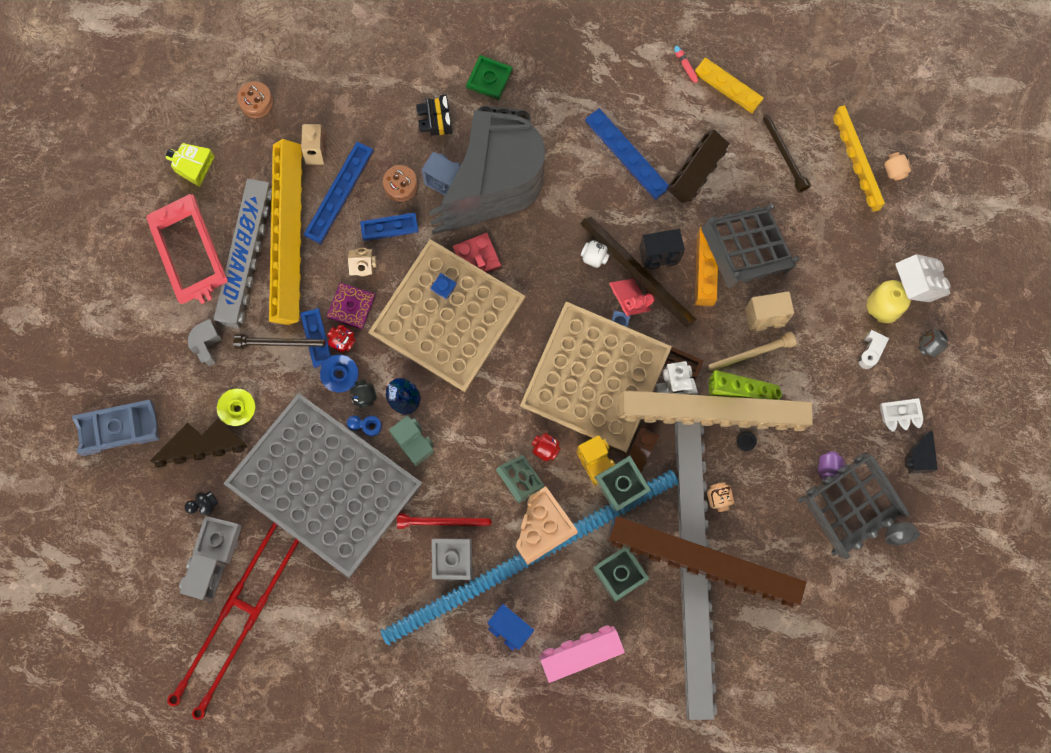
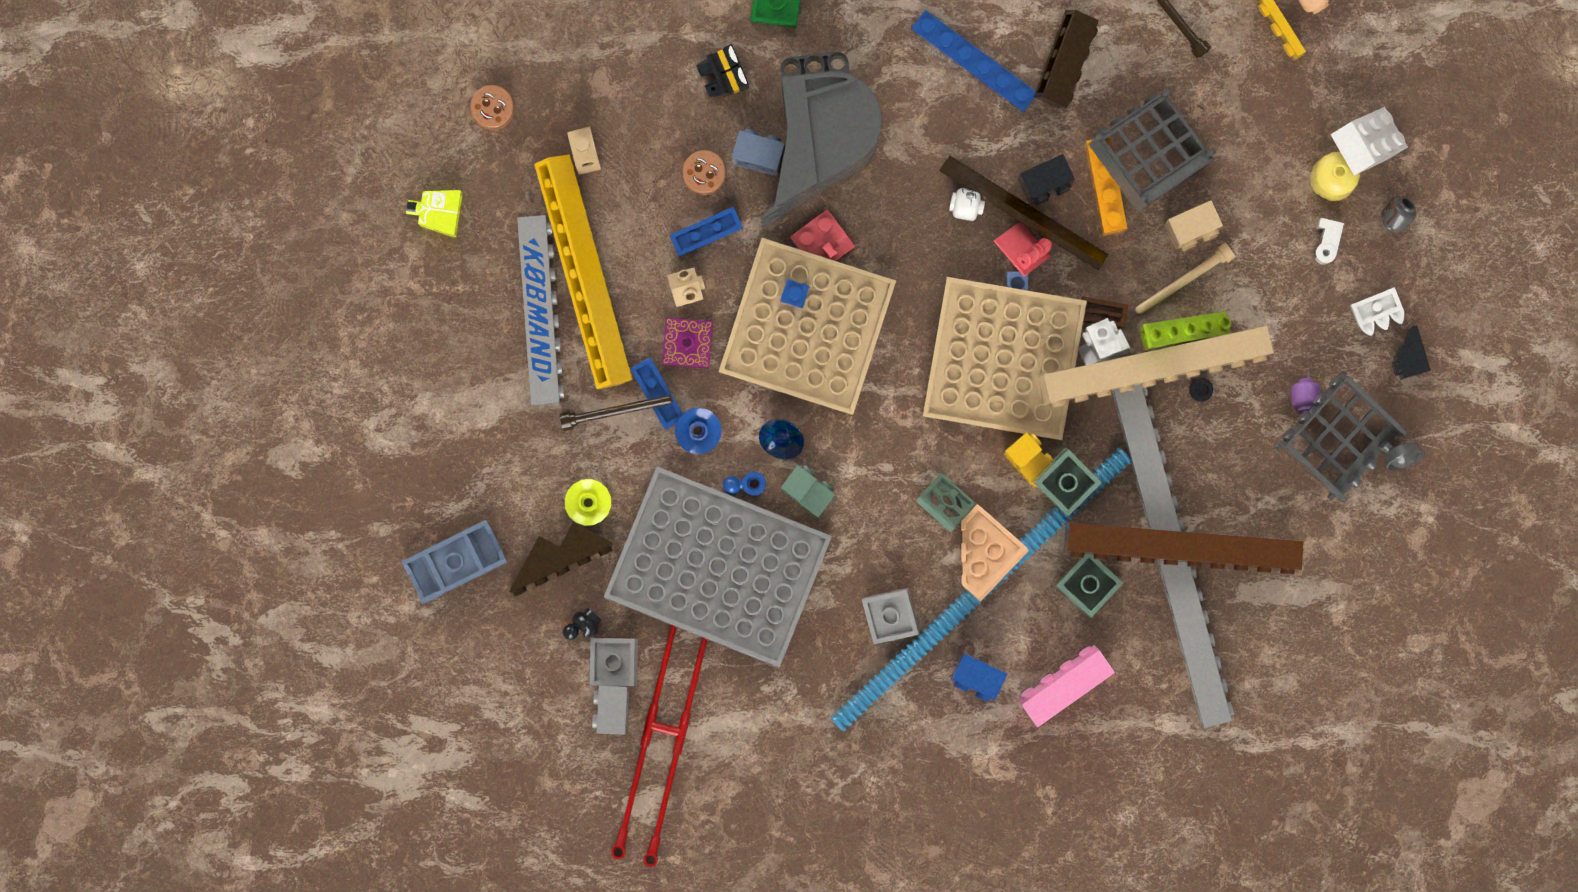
camera: 10 degrees left, 10 degrees up
(169, 215) = (439, 282): coral animal -> none
(201, 338) = (520, 429): light grey brick -> none
(338, 193) = (632, 203): blue plate -> none
(341, 338) = (688, 387): red head -> none
(363, 394) = (733, 448): pearl dark grey head -> none
(404, 521) = (824, 585): red piece -> none
(545, 447) = (966, 457): red head -> none
(643, 447) = (1079, 432): reddish brown slope -> none
(720, 496) = (1184, 465): light nougat head -> none

